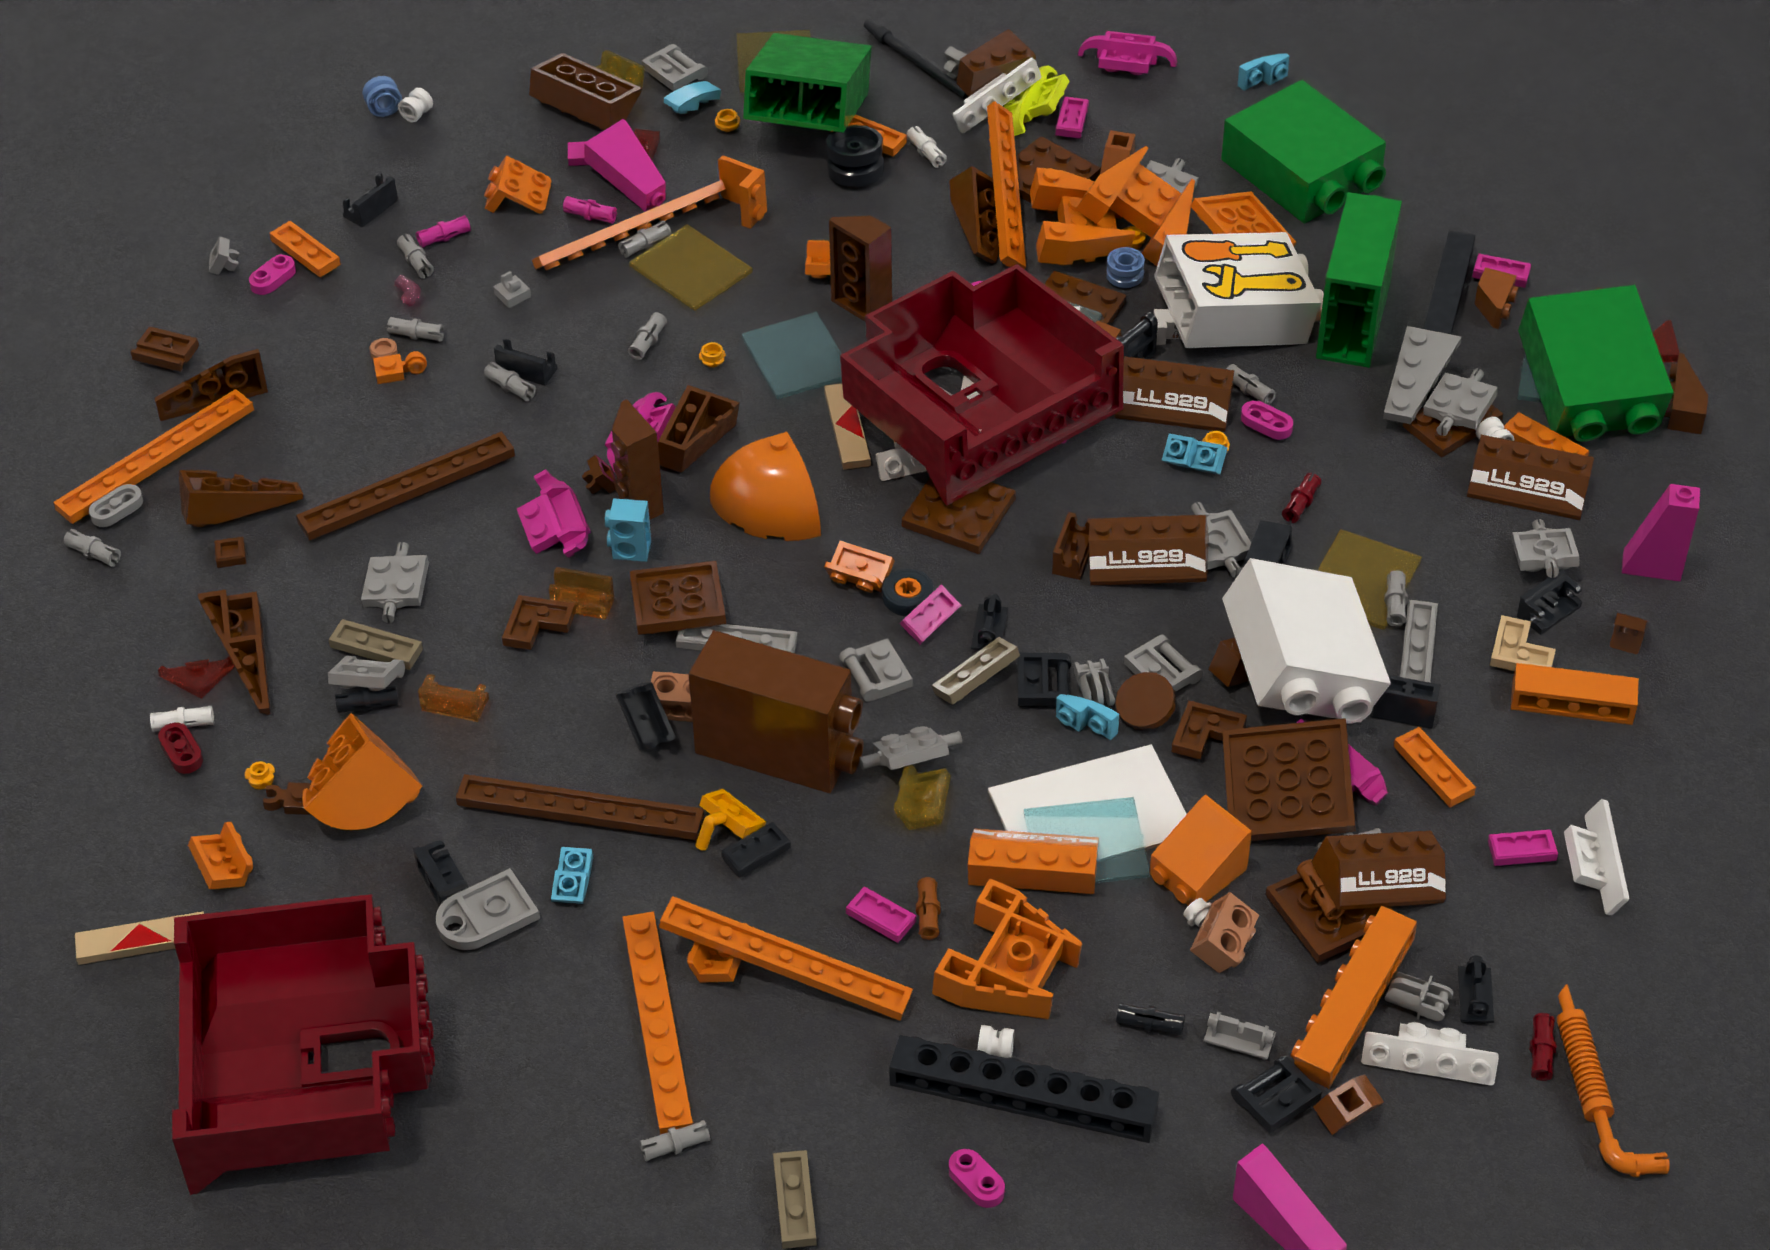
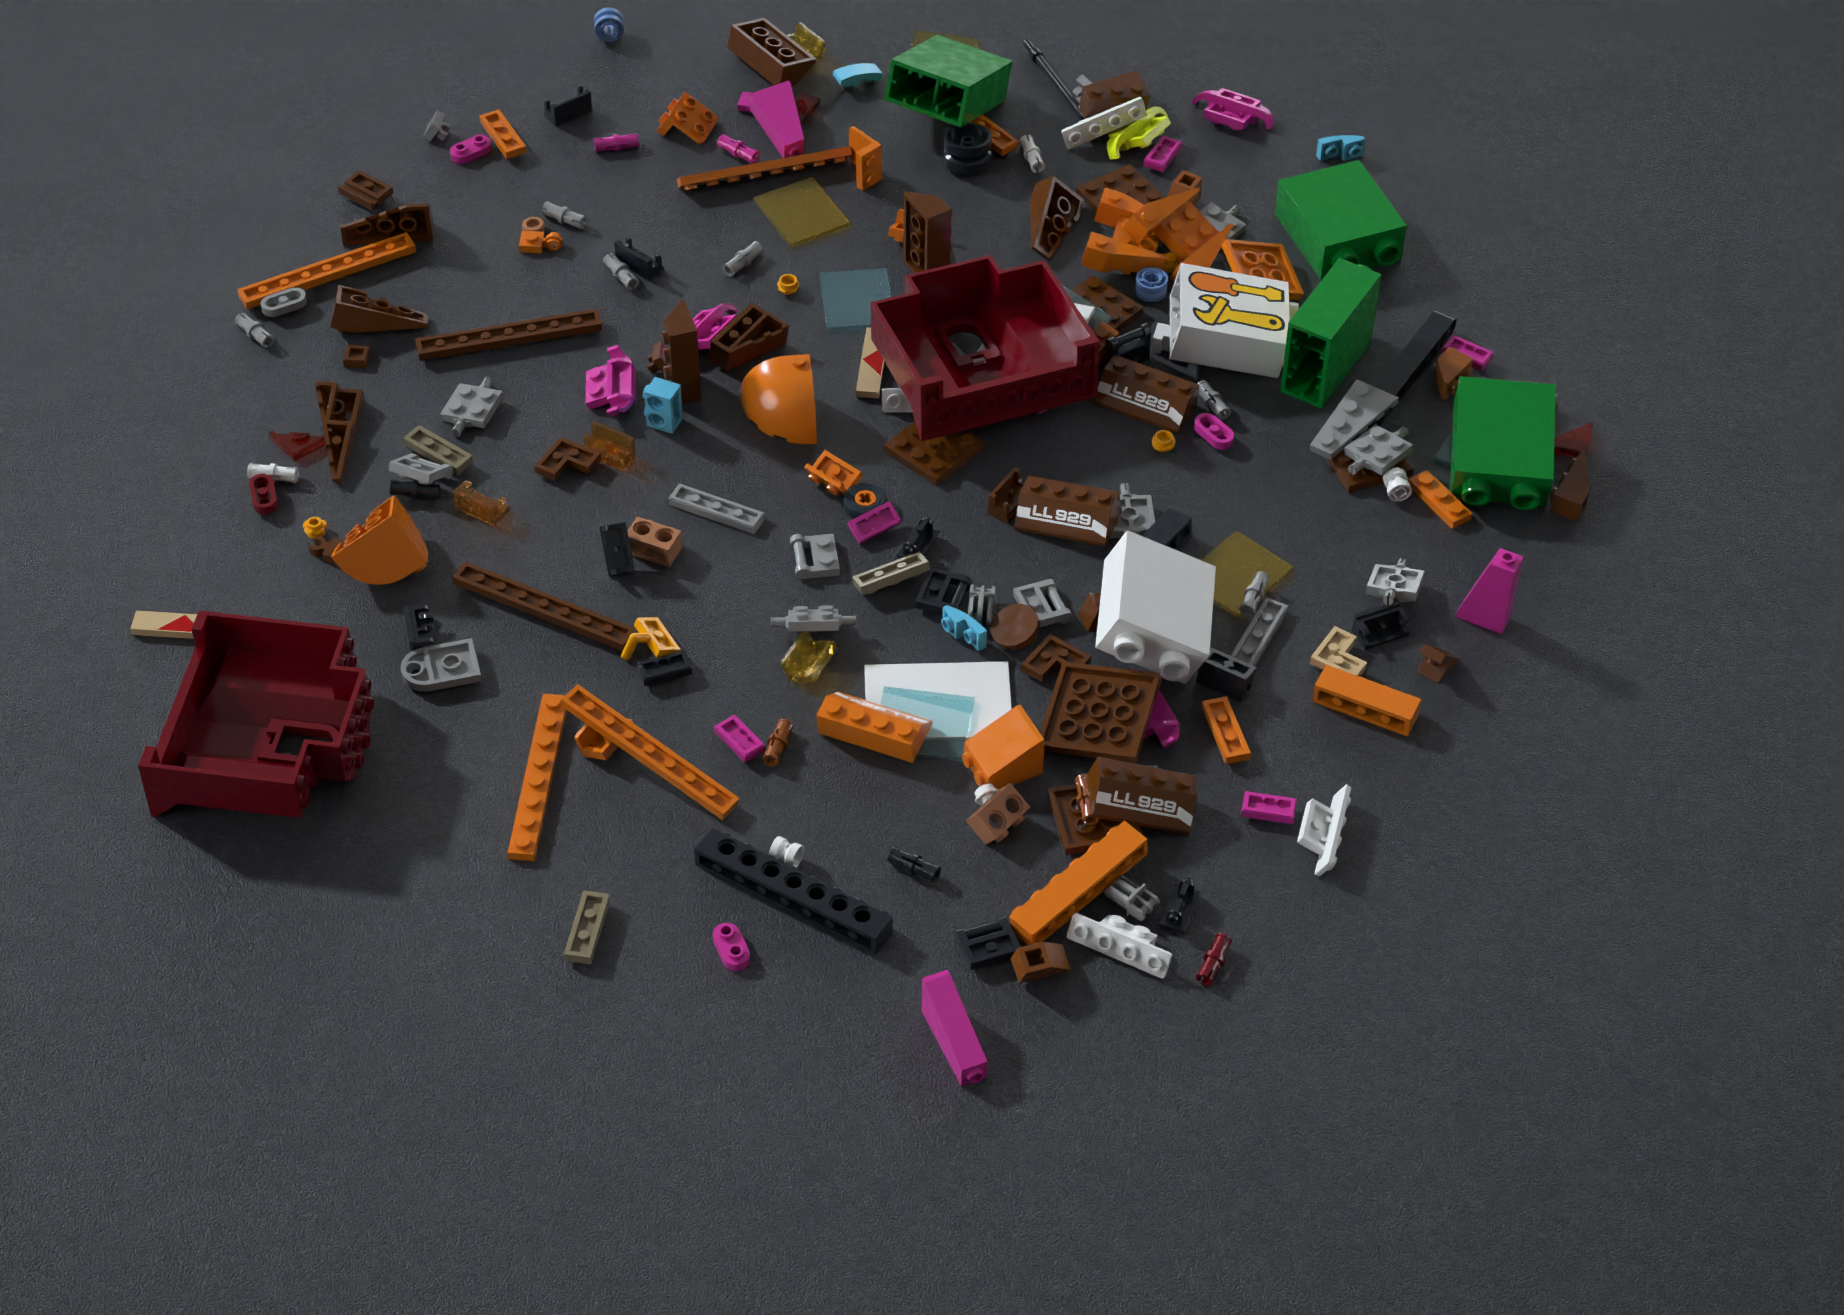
camera: 15 degrees right, 0 degrees up
(222, 858) = (262, 581): orange bracket -> none
(411, 290) = (572, 183): clear pink arm -> none
(415, 105) = (634, 36): white wheel -> none
(415, 256) = (586, 157): light grey pin -> none
(511, 290) = (651, 200): light grey tile -> none
(572, 875) = (519, 655): medium azure slope -> none
(644, 239) = (772, 181): light grey pin -> none
(670, 72) = (848, 51): light grey plate -> none
(674, 1140) = (515, 864): light grey pin -> none
(677, 597) = (681, 465): reddish brown plate -> none
(727, 120) = (877, 100): light orange plate -> none
(774, 712) = (710, 565): reddish brown brick -> none
(1006, 186) = (1079, 198): orange plate -> none
(1015, 960) = (823, 795): orange wedge -> none
(1194, 454) = (1141, 445): medium azure slope -> none
(1239, 1036) = (978, 893): light grey hinge -> none
(1301, 497) = (1215, 498): dark red pin -> none
(1530, 477) = (1411, 523): reddish brown slope -> none
(1594, 1092) = (1238, 1002): orange piece -> none

